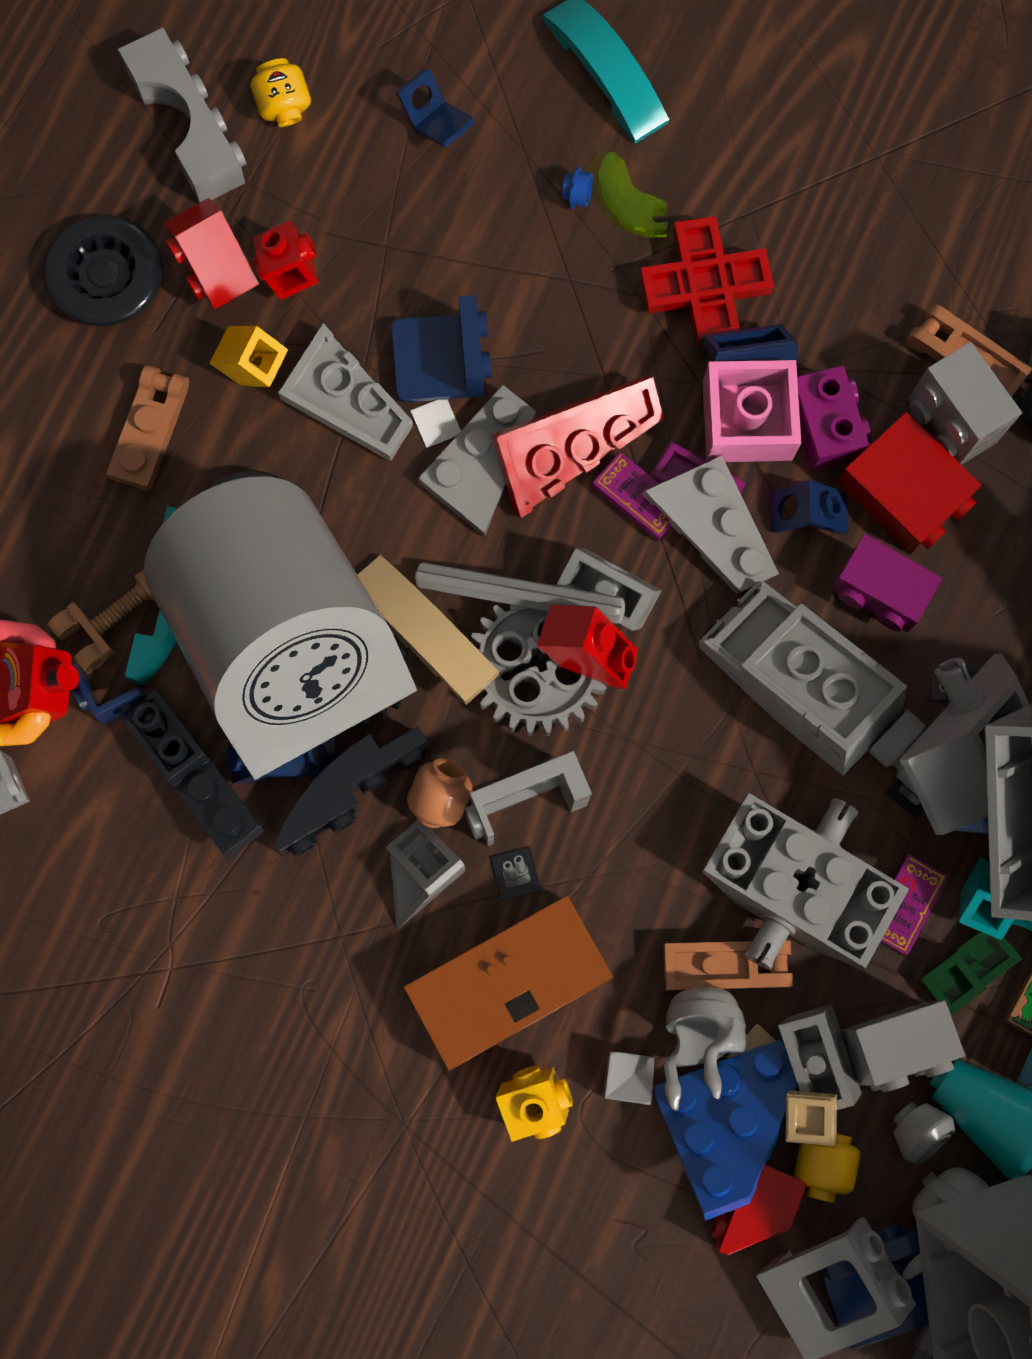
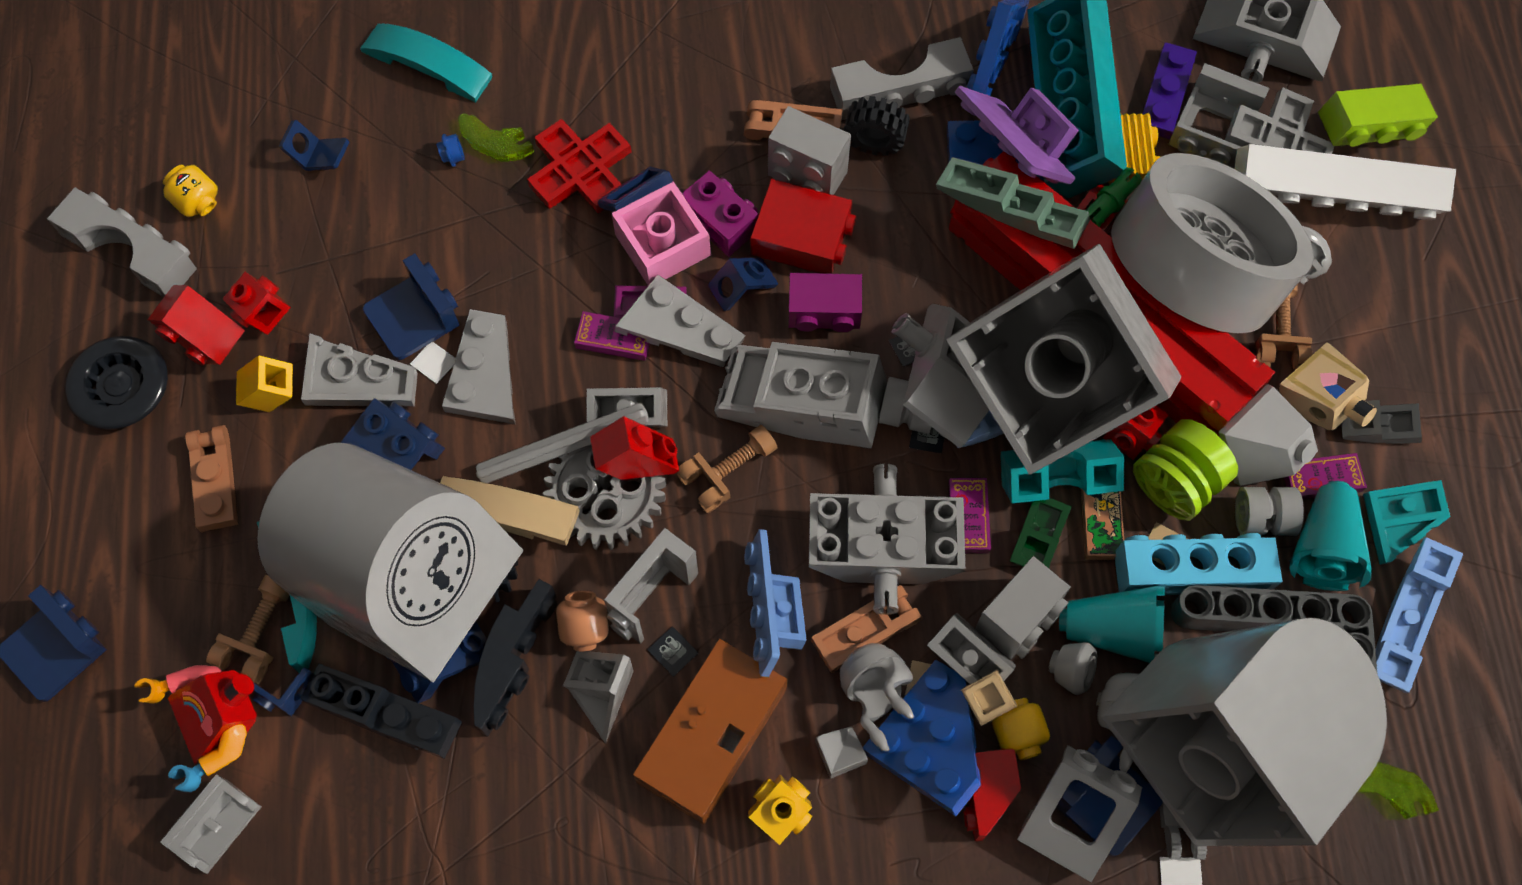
camera: 25 degrees left, 10 degrees down
(345, 488) = (390, 435): none -> dark blue bracket
(562, 444) = (535, 329): wing -> none
(646, 892) = (776, 606): none -> medium blue bracket
(727, 702) = (760, 443): none -> medium nougat bar

